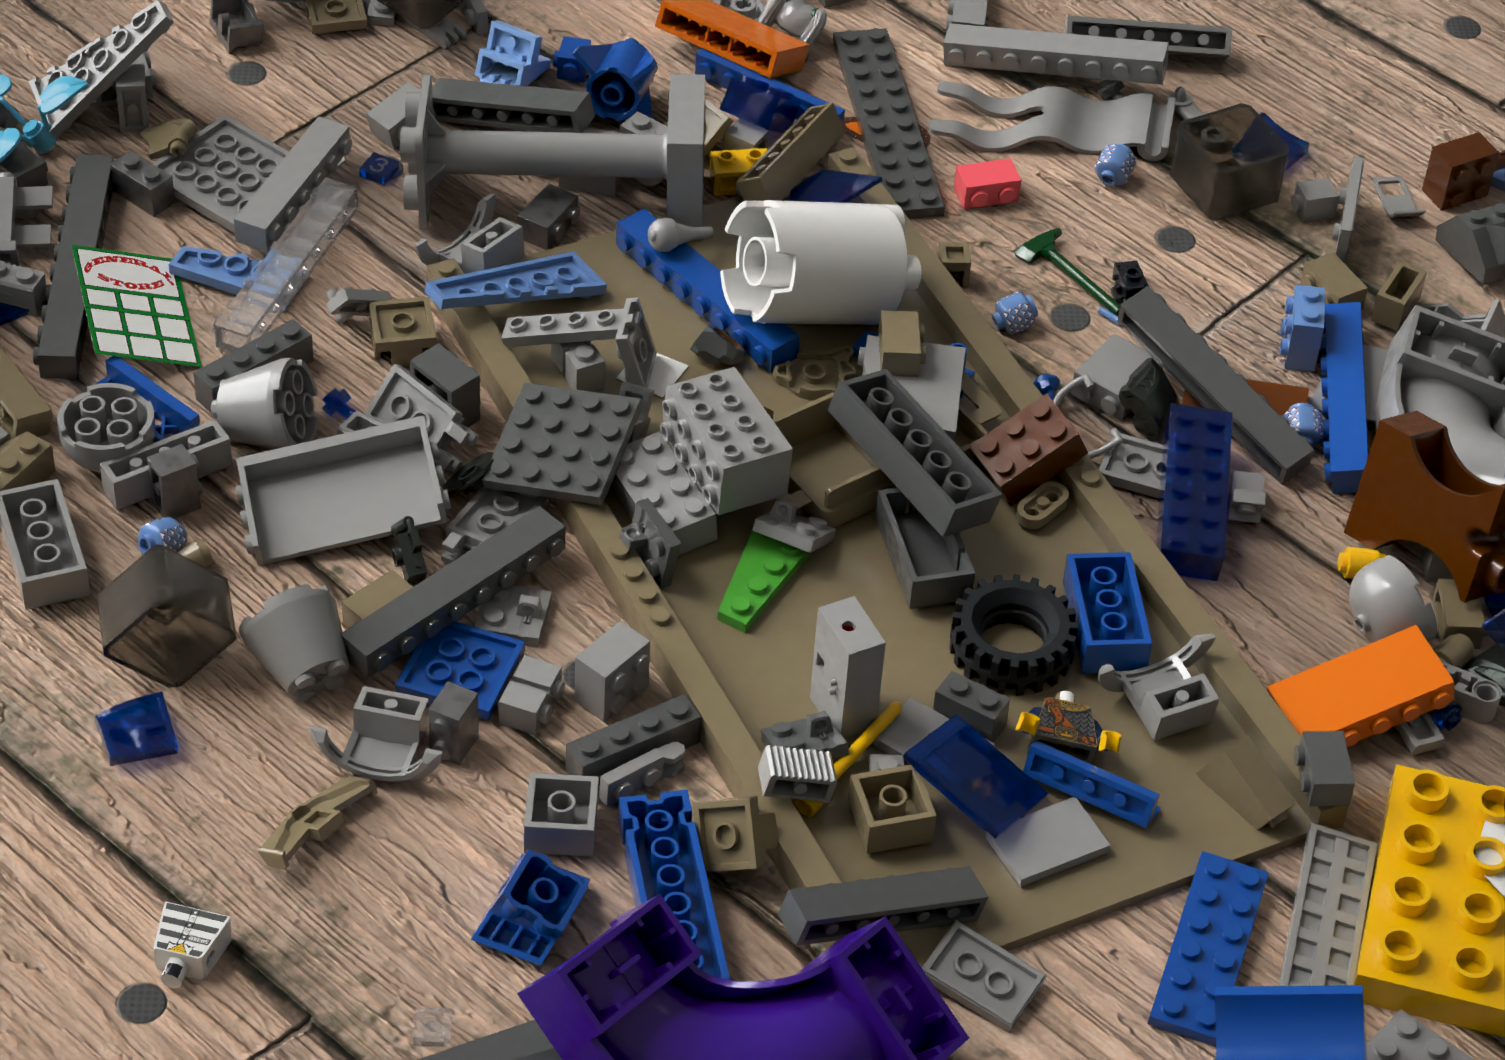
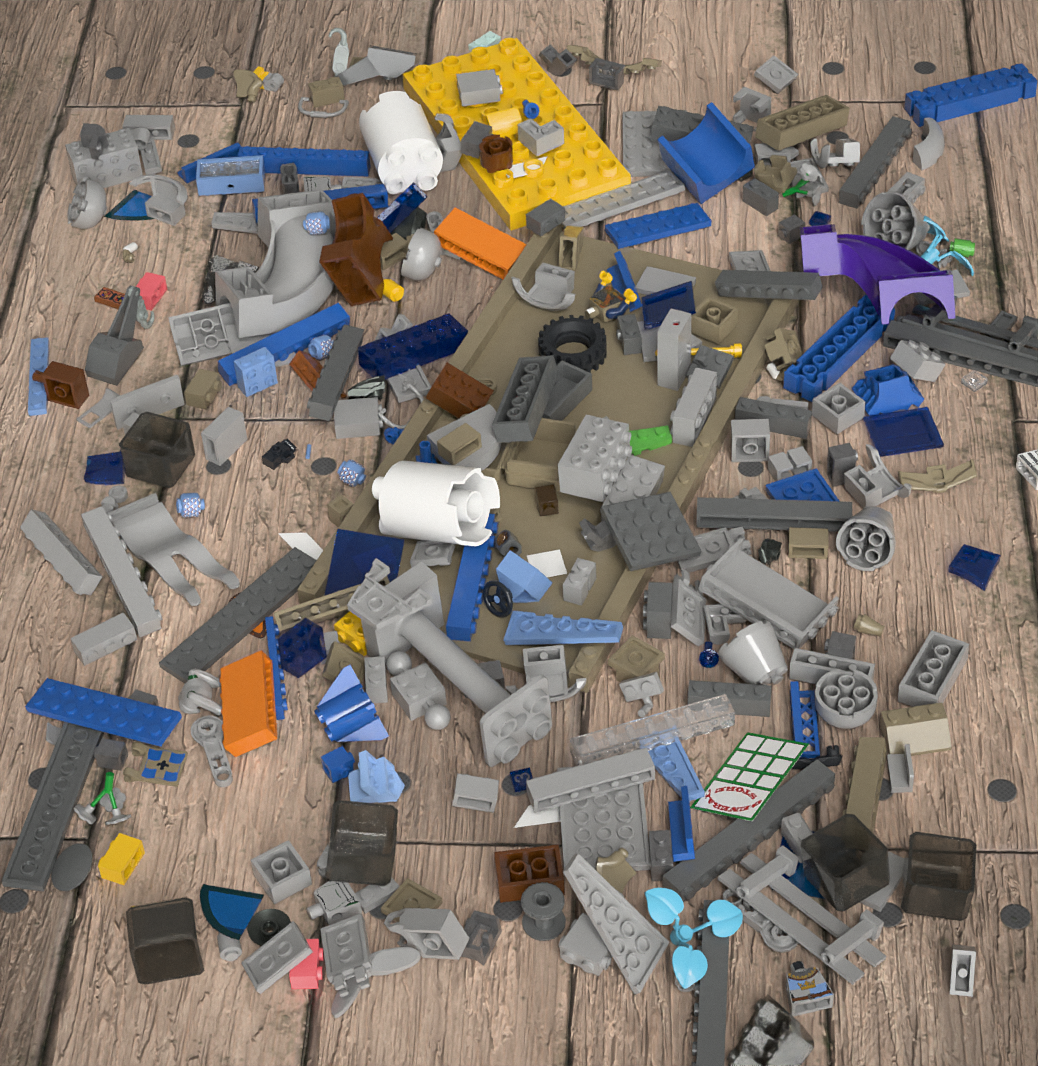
camera: 125 degrees left, 0 degrees up
(84, 374) = (832, 758): none -> black piece
(143, 208) = (681, 828): none -> blue fence
(164, 532) = (872, 639): medium blue head -> none
(166, 617) = (924, 569): clear smoke plate -> none
(194, 74) = (543, 911): none -> dark grey hose
(252, 84) = (527, 866): none -> reddish brown brick
(444, 867) = (903, 431): none -> clear blue piece
(469, 475) = (697, 558): pearl dark grey dish -> none
(511, 106) = (423, 741): dark grey brick -> none
(528, 956) = (918, 360): none -> light grey brick
(624, 325) = (562, 553): light grey bracket -> none
(635, 282) = (517, 584): none -> medium blue piece
(653, 542) = (669, 466): dark grey hinge -> none
(666, 234) = (464, 590): light grey piece -> none
(679, 73) = (379, 605): none -> light grey wing
(734, 649) = (694, 407): none -> light grey brick
(797, 773) = (739, 342): light grey brick -> none
(948, 226) = (303, 542): none -> white sticker
(987, 183) = (258, 541): coral brick -> none
(1044, 247) = (283, 499): dark green piece -> none
(1108, 611) = (521, 328): blue brick -> none
(1203, 239) = (224, 436): none -> light grey brick
(1398, 295) = (190, 359): dark tan brick -> none

